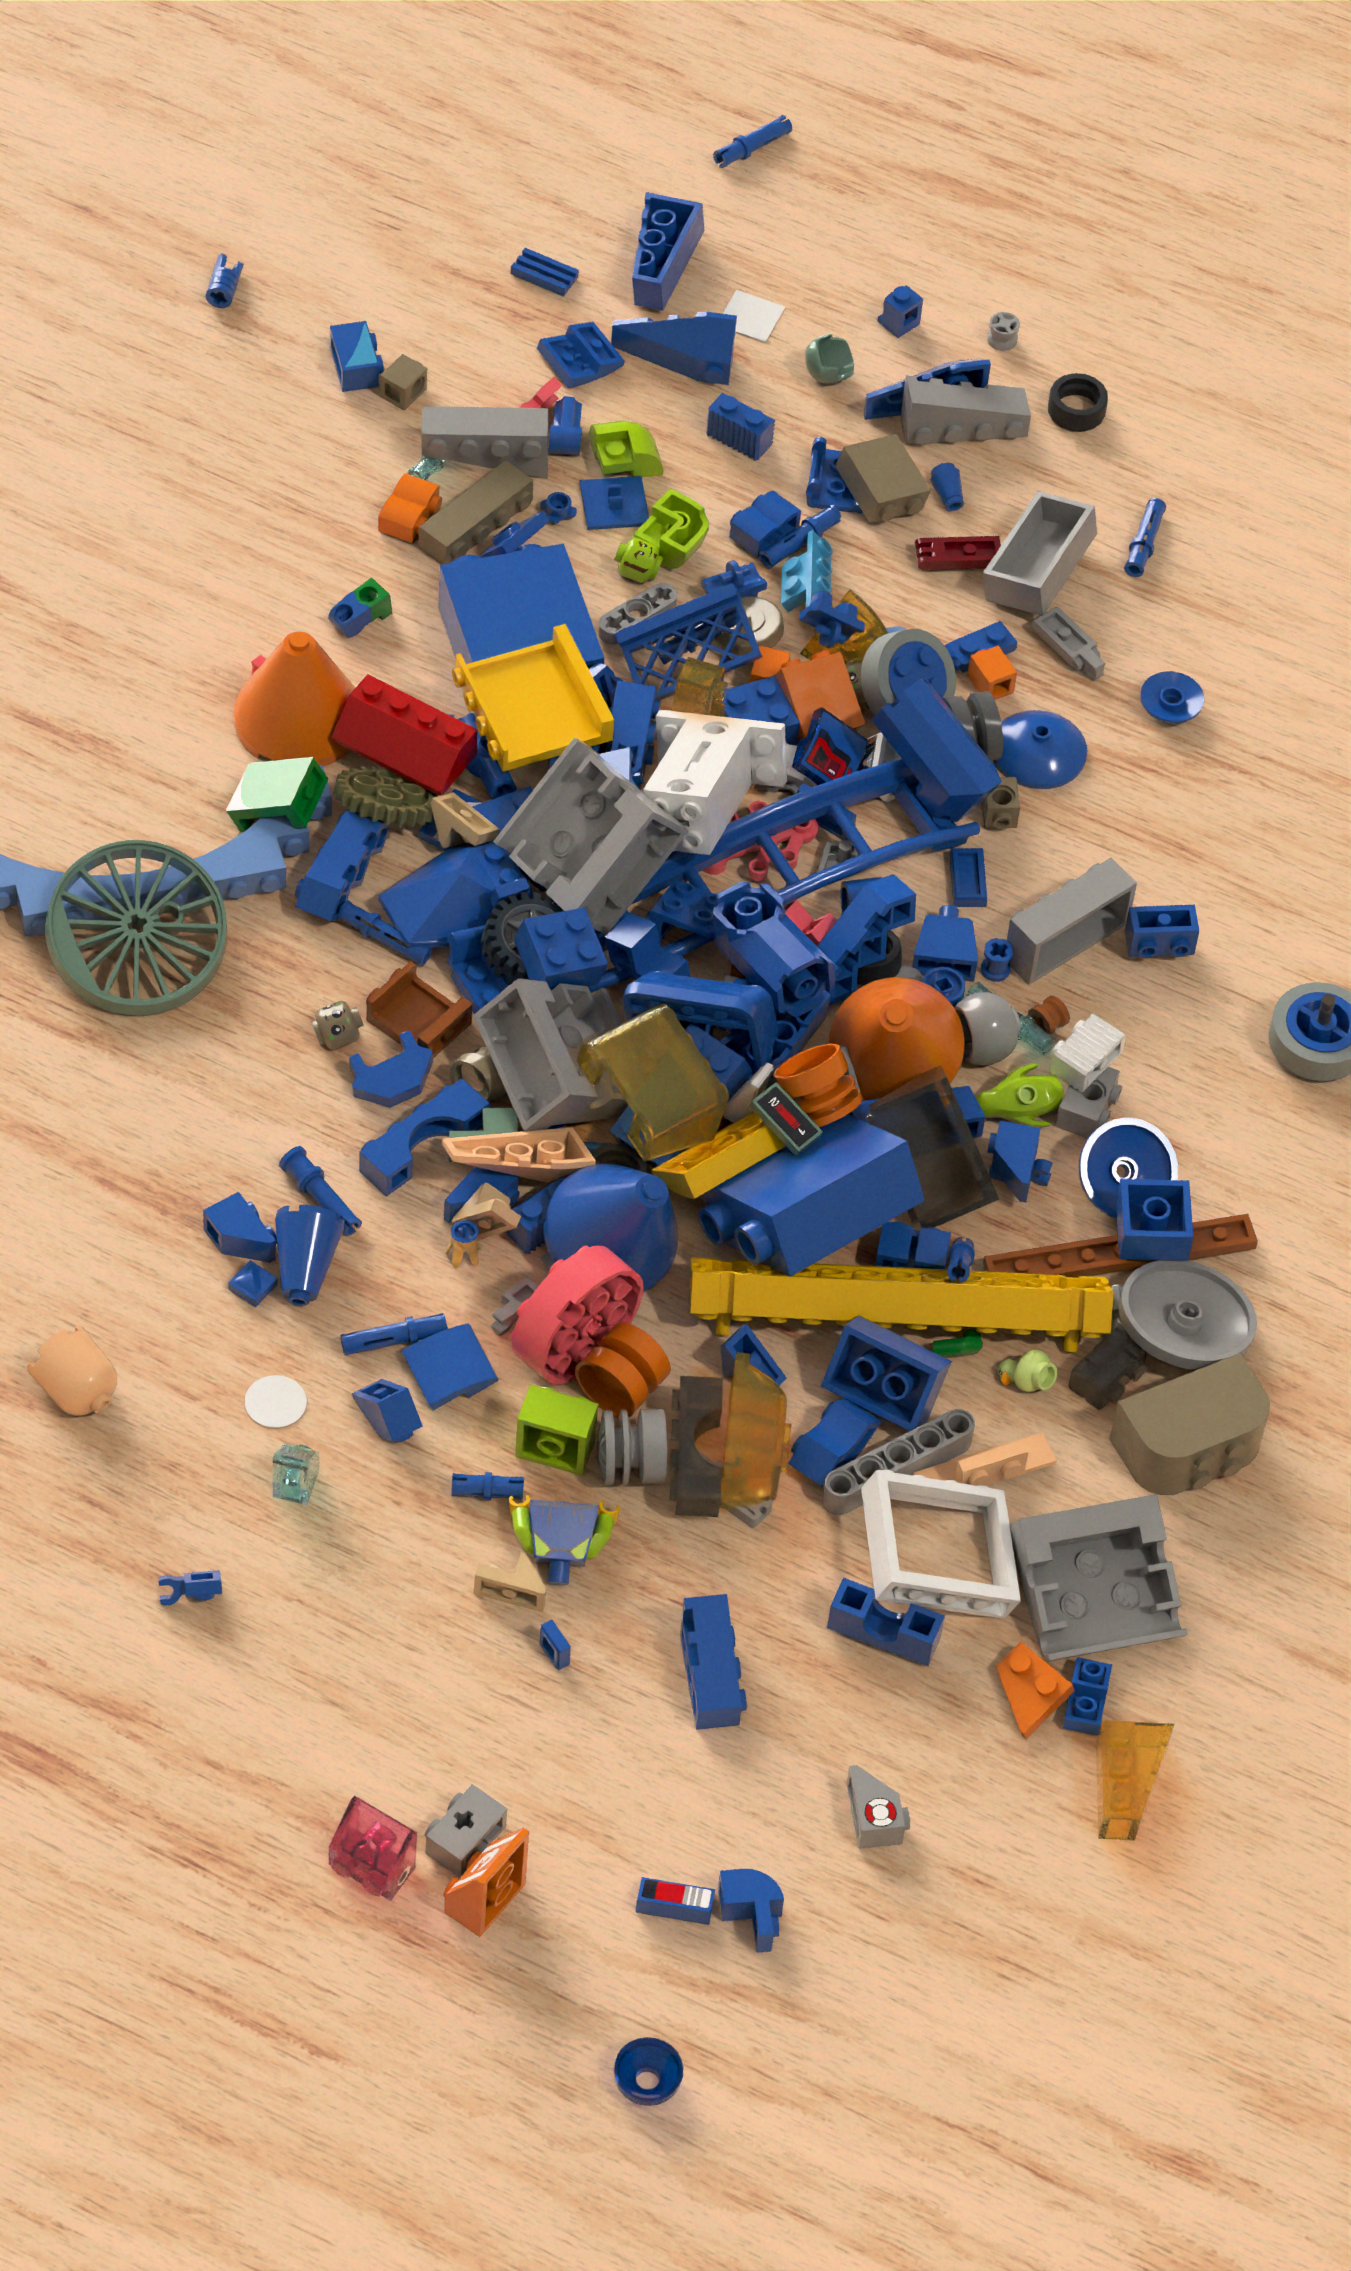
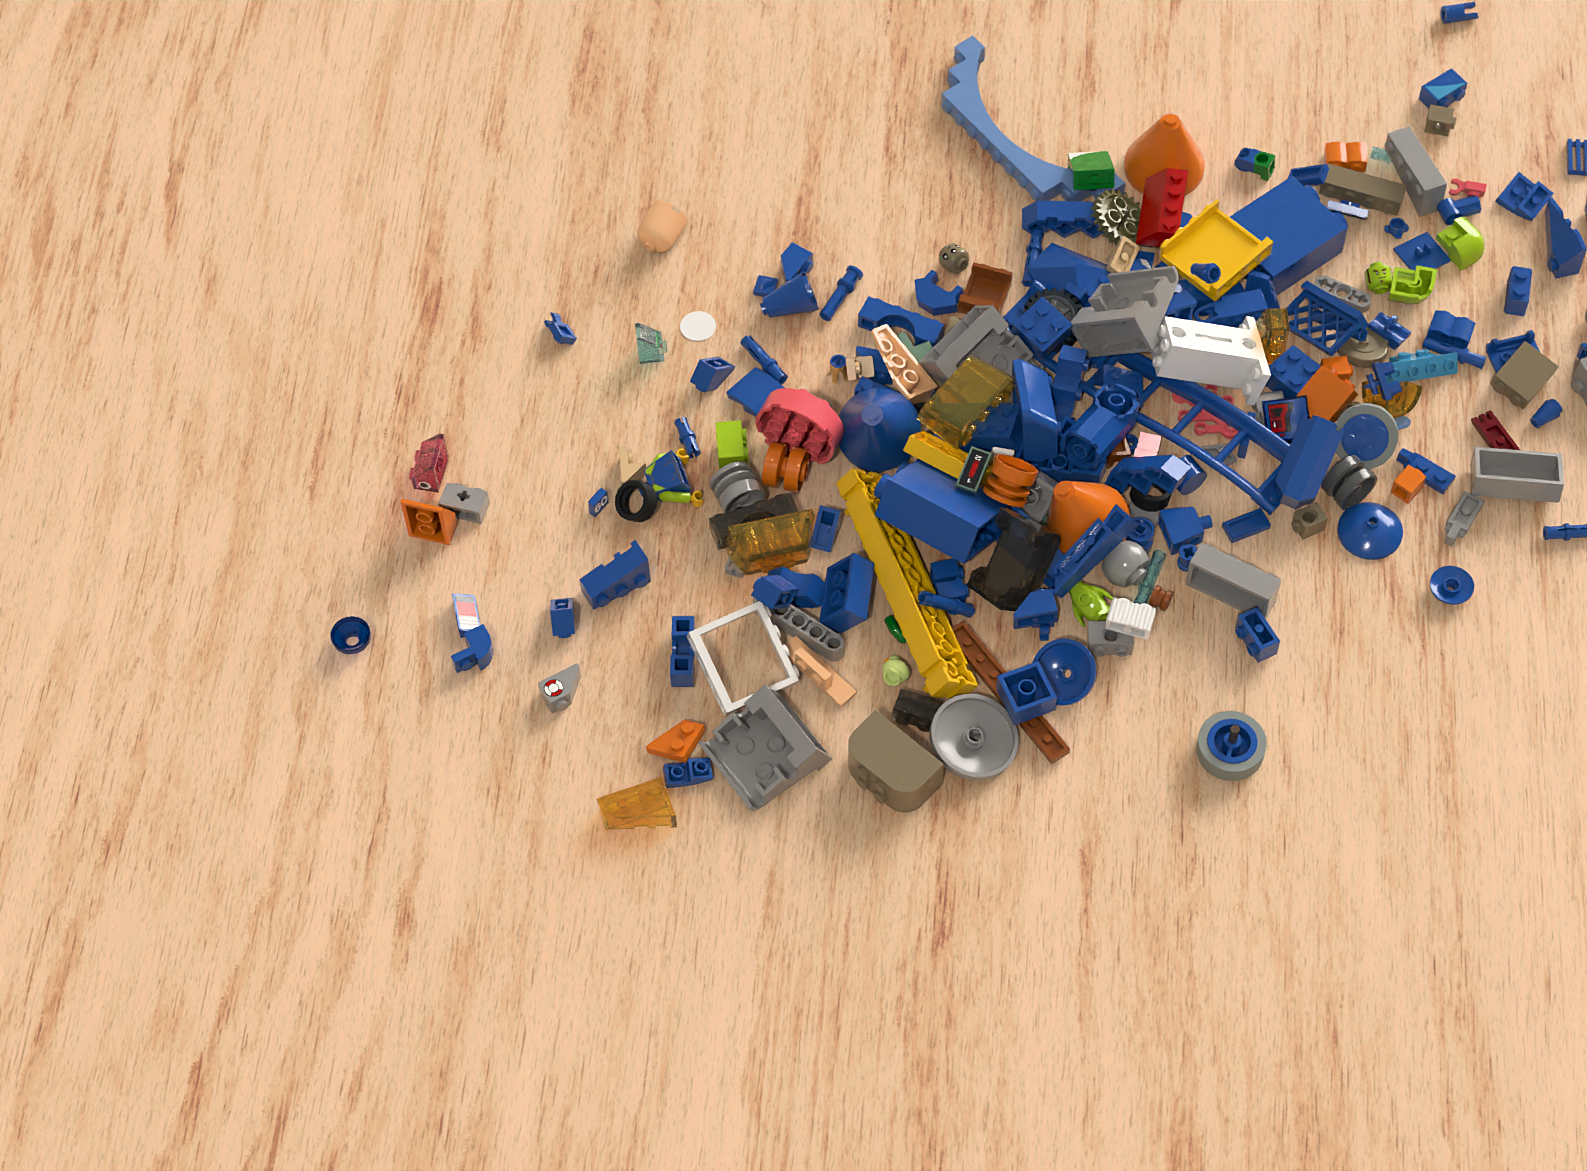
camera: 75 degrees right, 5 degrees up
(66, 952) = (962, 142): sand green piece -> none
(422, 560) = (1311, 174): none -> blue tile
(578, 718) = (1206, 271): none -> blue cone
(613, 1594) = (622, 501): none -> black tyre
(744, 1762) = (562, 617): none -> blue slope
(863, 1450) = (774, 591): none -> blue brick
(967, 1044) = (1091, 549): none -> blue wedge

